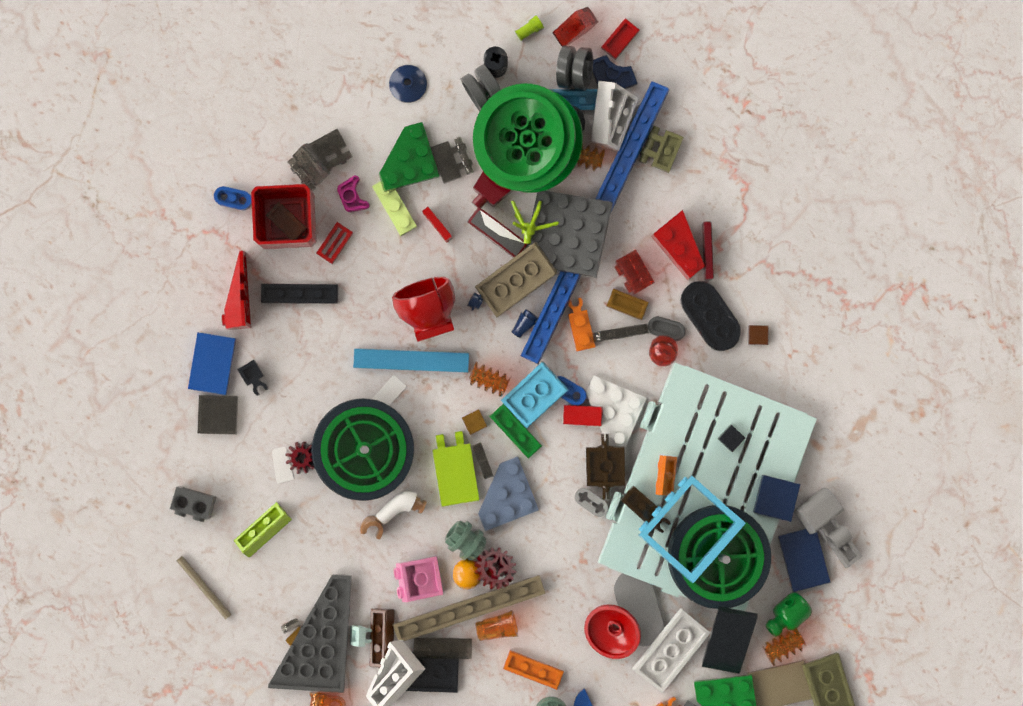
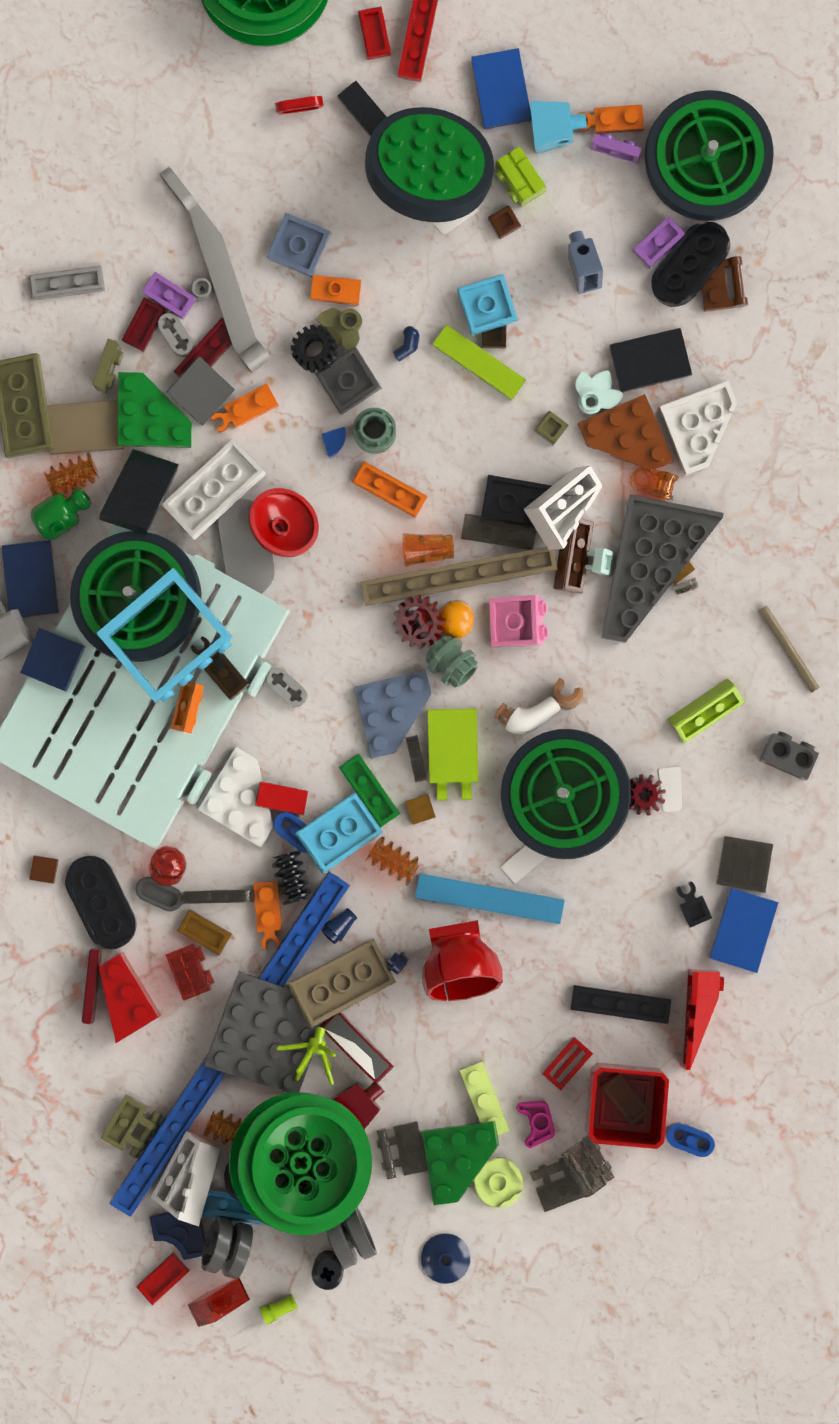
camera: 165 degrees left, 0 degrees up
(374, 145) = (499, 1182): none -> yellowish green tile
(437, 224) = (432, 1068): red tile -> none
(566, 355) = (291, 877): none -> black piece
(605, 466) = (262, 730): dark brown plate -> none
(731, 438) = (98, 742): black tile -> none

